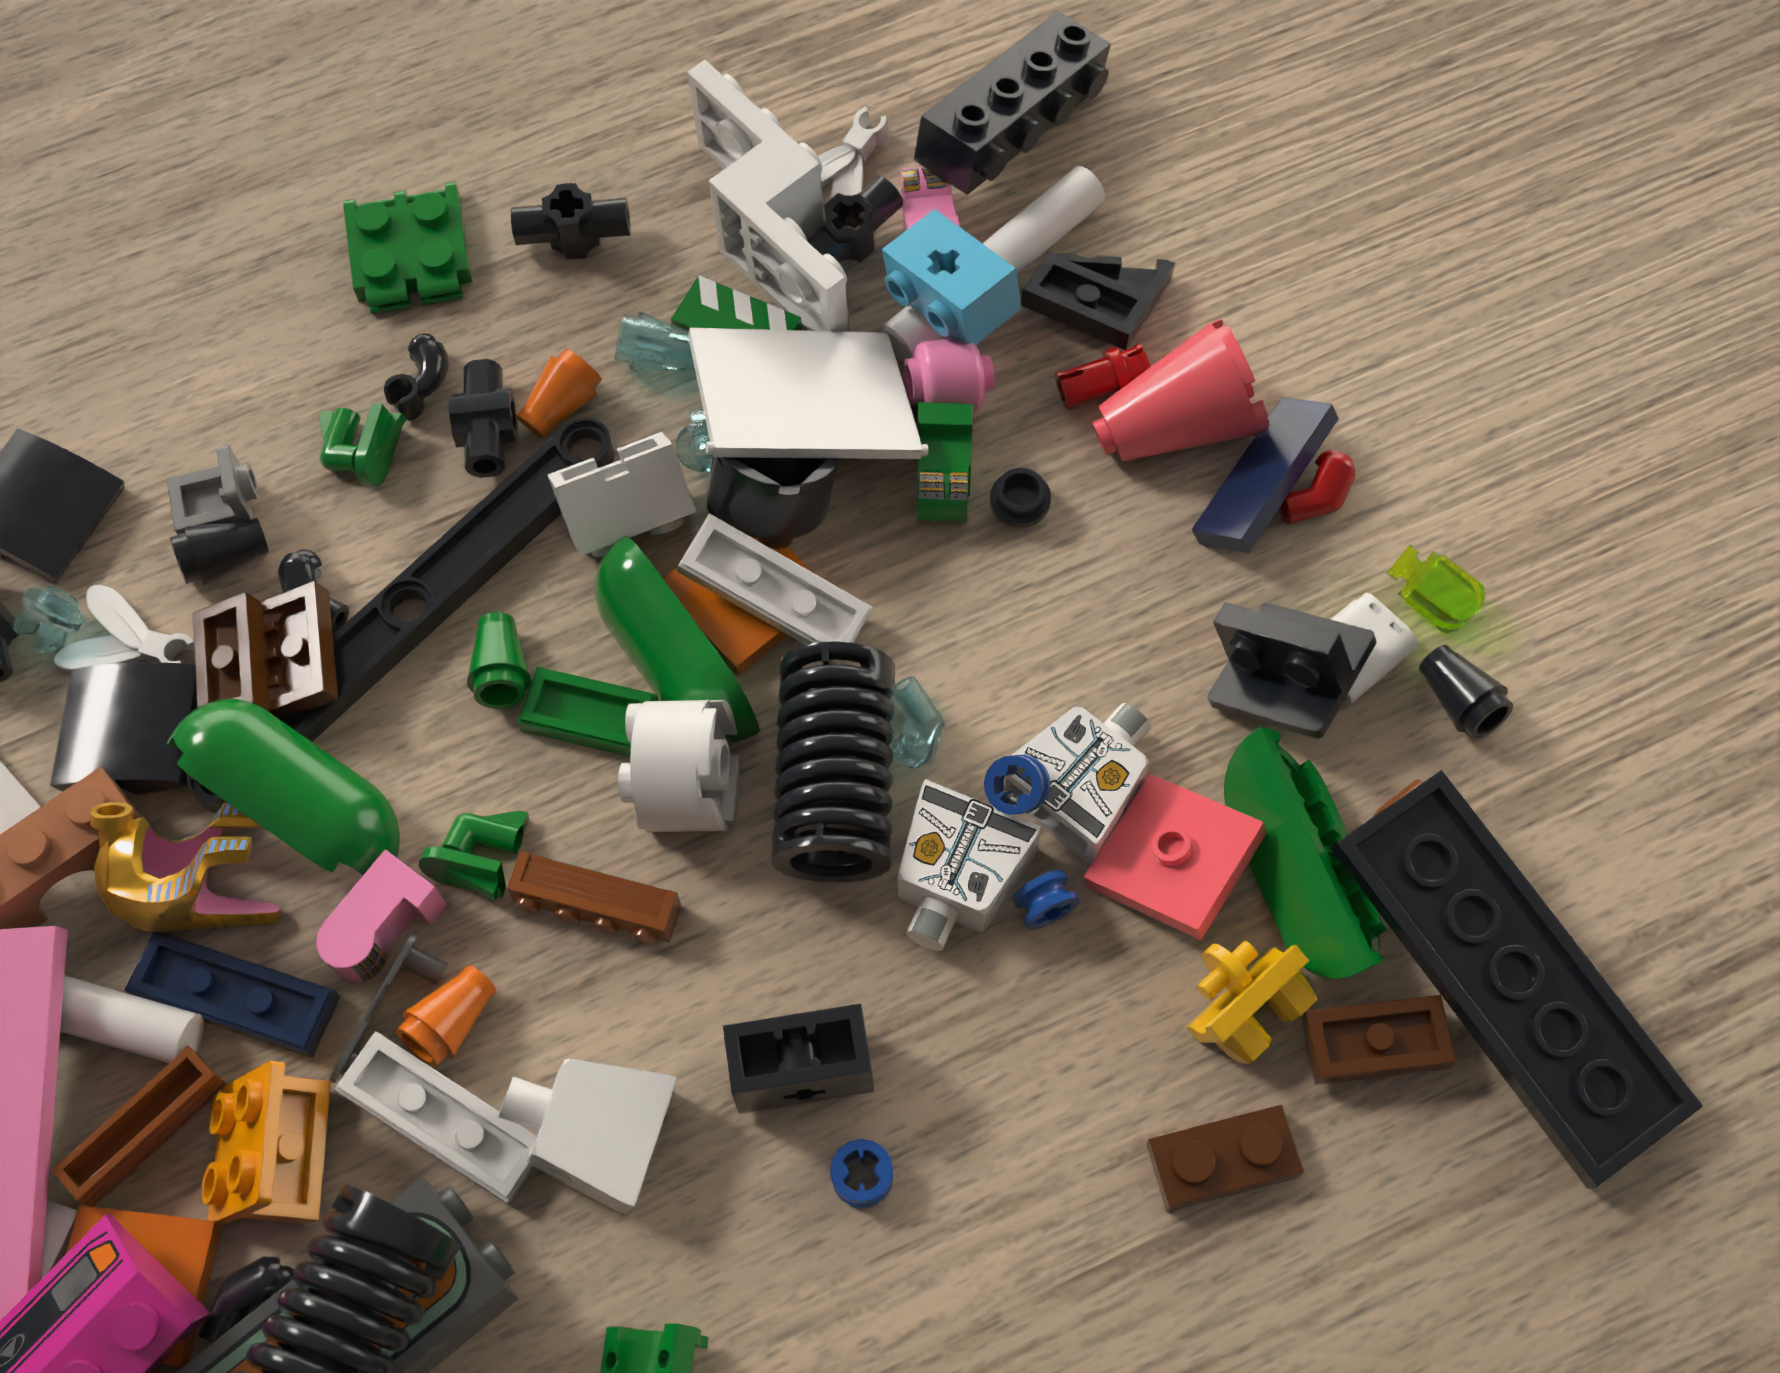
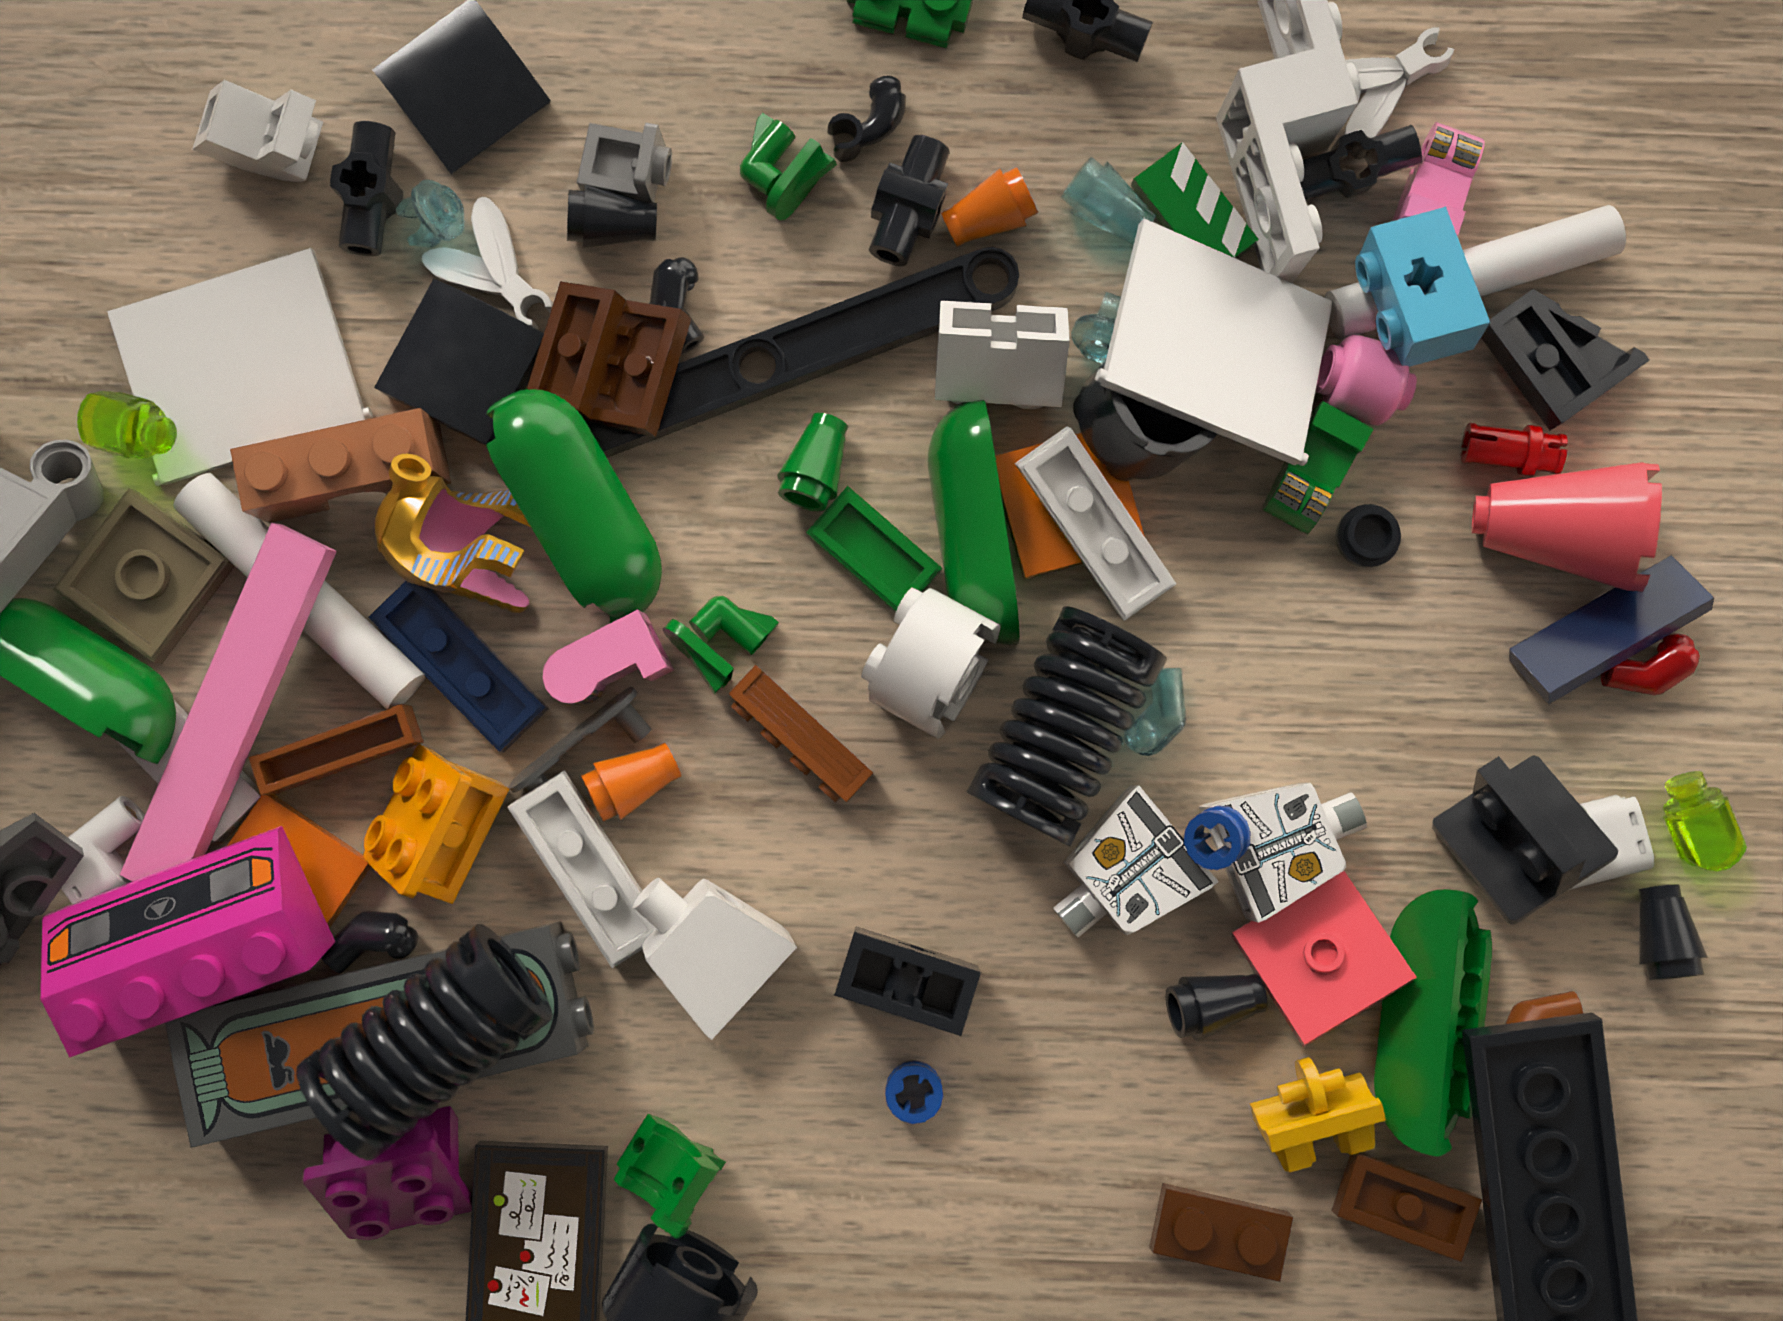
camera: 25 degrees right, 20 degrees up
(1012, 103) = (1588, 104): black brick -> none
(1045, 899) = (1189, 938): blue bush -> none
(1098, 948) = (1213, 1003): none -> black cone

